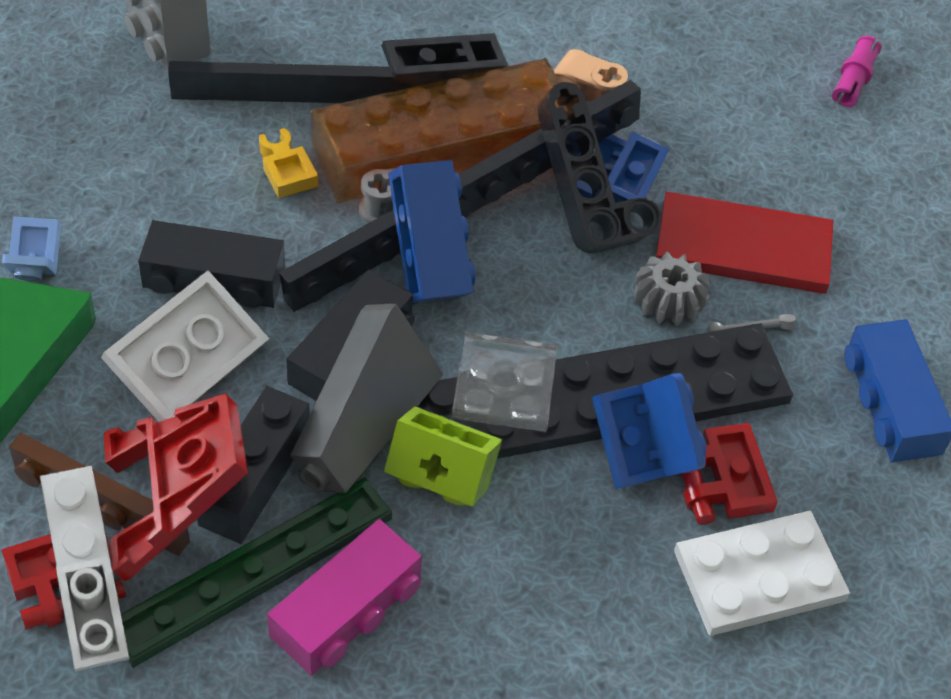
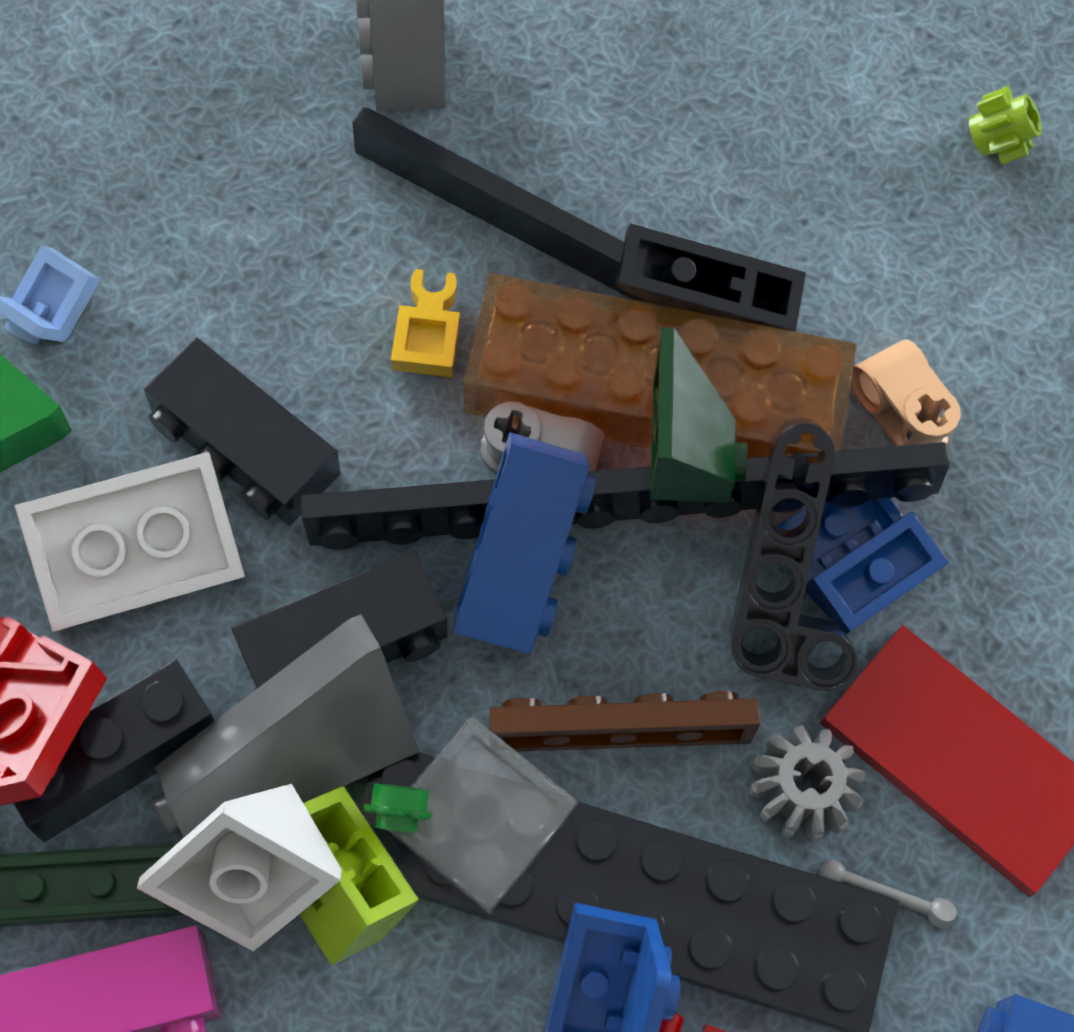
camera: 30 degrees right, 15 degrees up
(394, 465) = (247, 867): none -> white slope
(460, 388) = (399, 807): none -> green plate
(489, 122) = (691, 430): none -> dark green slope
(558, 303) = (646, 722): none -> reddish brown plate

